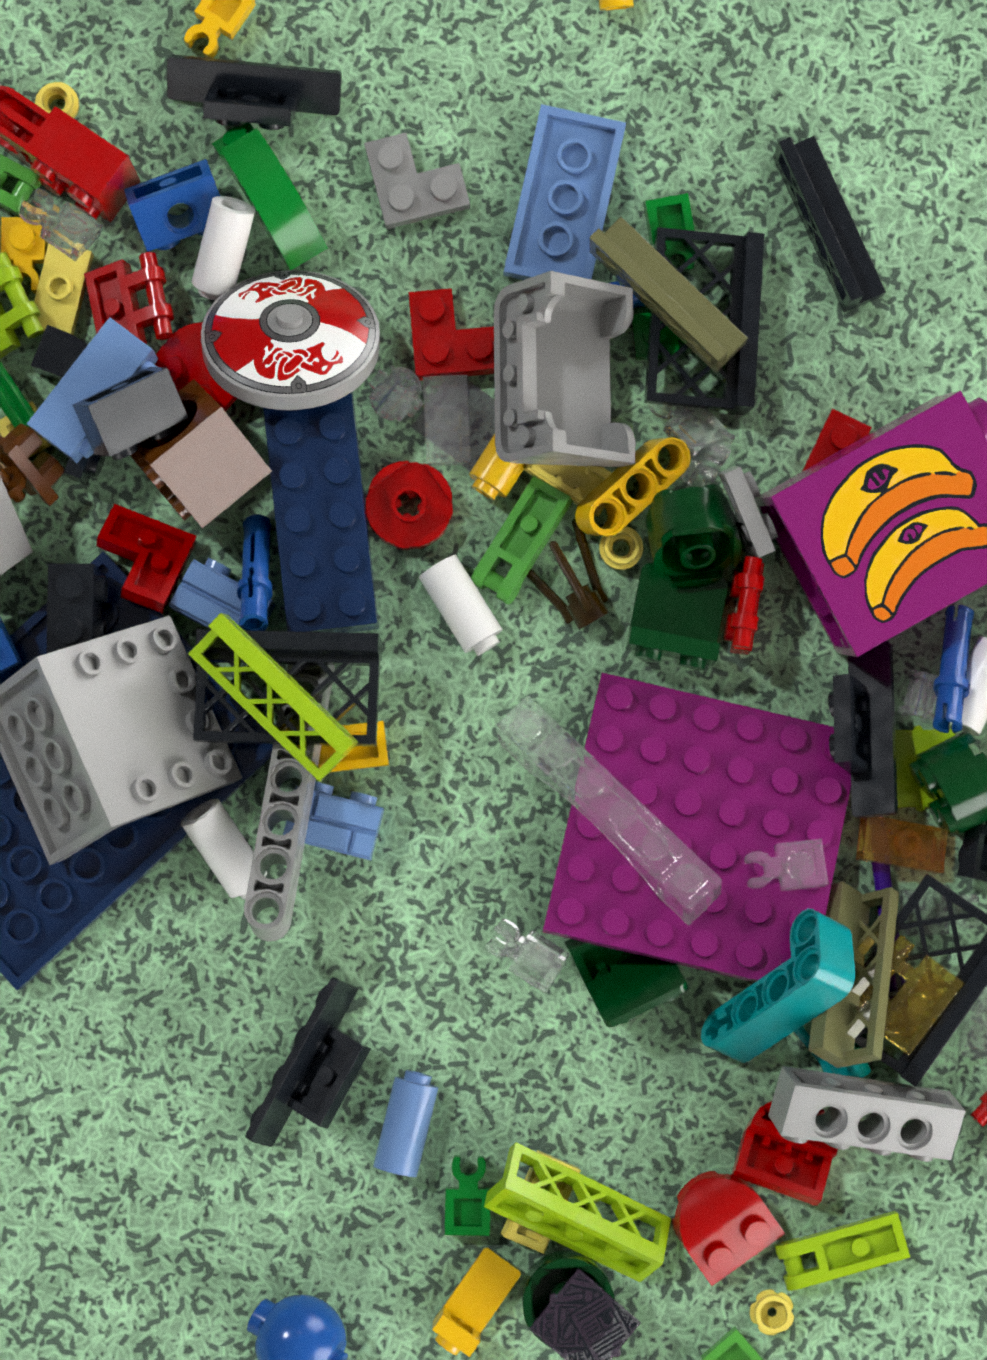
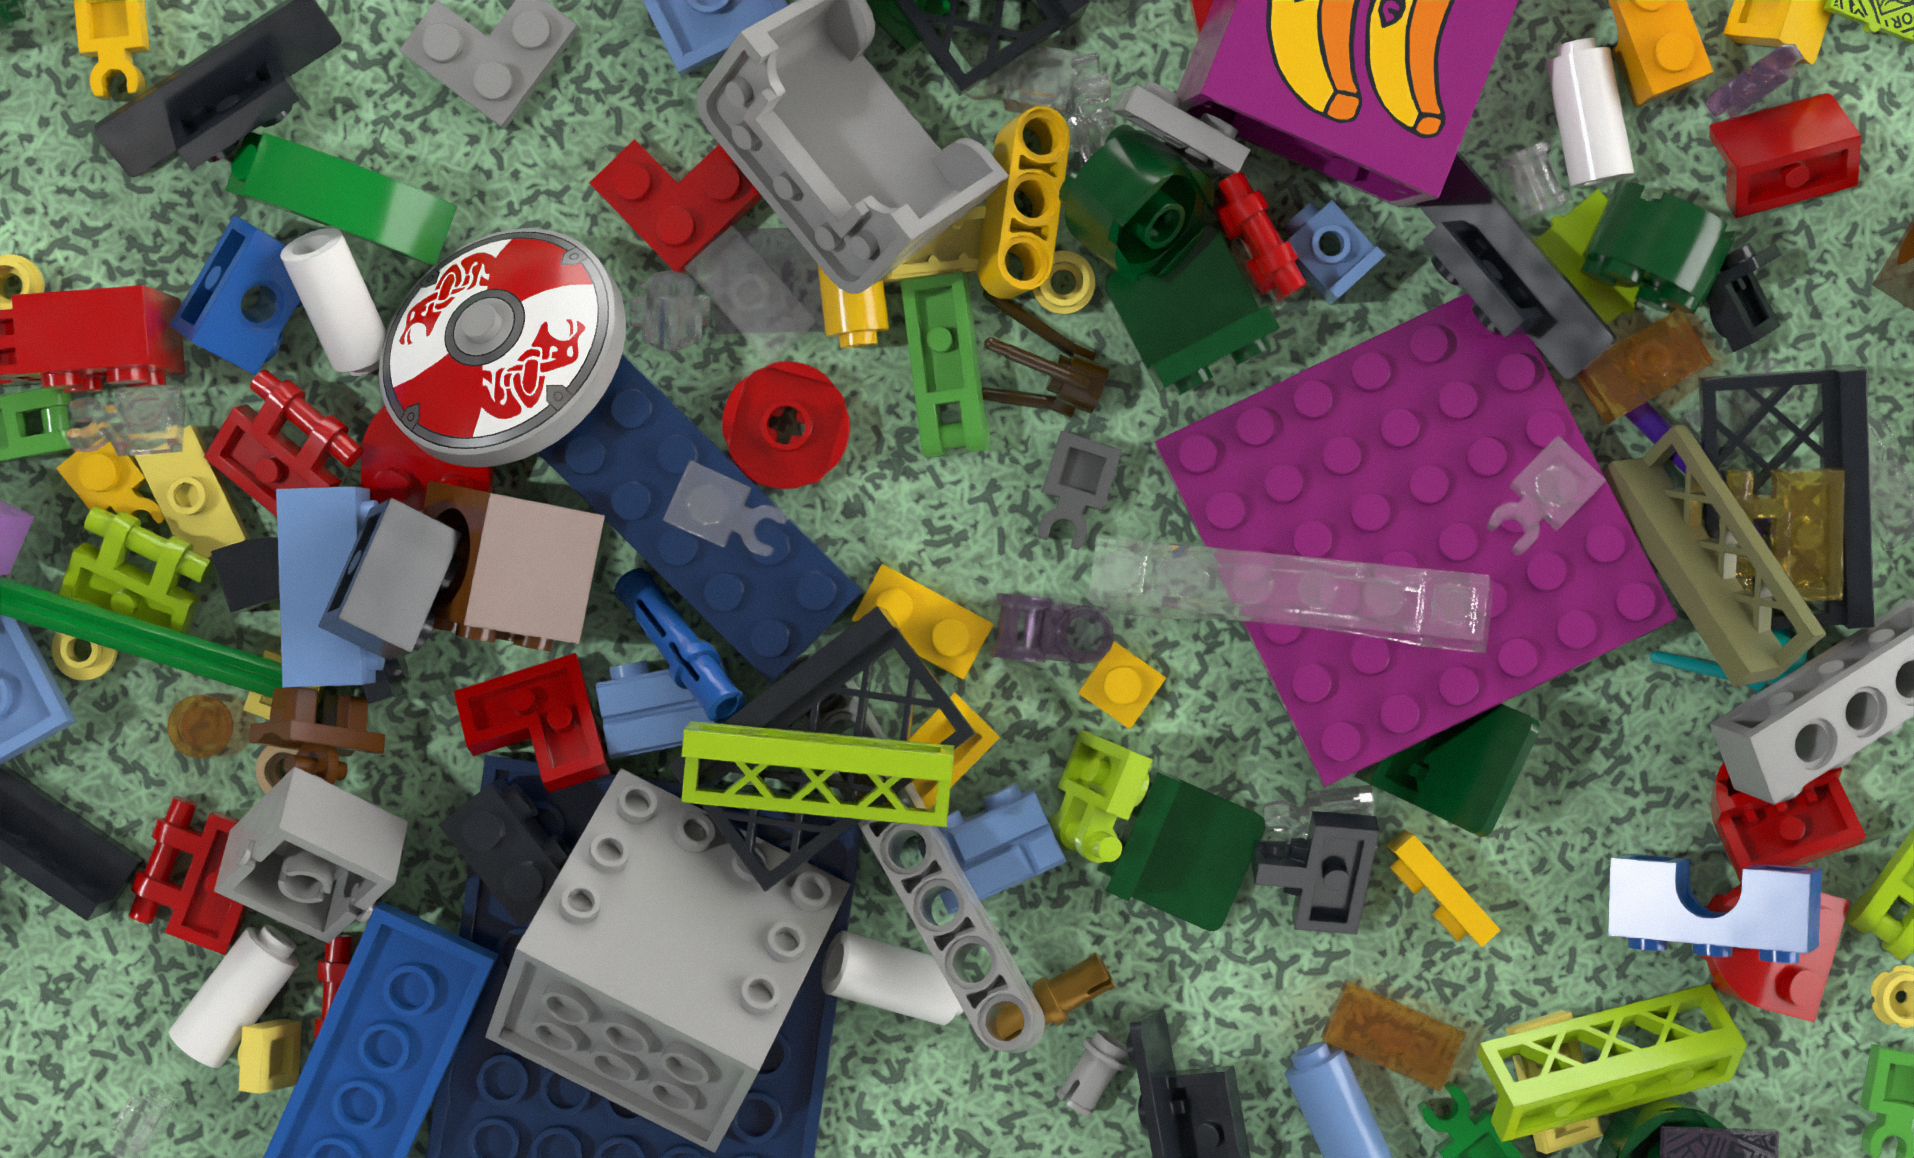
camera: 35 degrees left, 5 degrees up
(291, 991) = (1093, 1072): none -> light grey pin
(309, 933) = (1059, 995): none -> pearl gold pin
(334, 513) = (715, 506): none -> clear plate
(401, 673) = (930, 623): none -> yellow plate
(420, 832) = (1099, 786): none -> lime plate
(437, 906) = (1184, 851): none -> dark green bracket
(460, 726) = (1045, 630): none -> clear purple piece
(461, 605) = (938, 492): white brick -> none
(472, 1103) = (1393, 1035): none -> clear orange plate
(477, 791) = (1121, 685): none -> yellow plate
(505, 979) = (1324, 872): none -> black hinge
(544, 659) = (1080, 478): none -> dark grey plate
(562, 1063) = (1457, 910): none -> yellow plate
(735, 1196) = (1656, 905): none -> arch
(776, 660) = (1337, 273): none -> medium blue brick
(788, 996) = (1674, 614): teal beam -> none
(951, 684) = (1562, 141): blue pin -> none

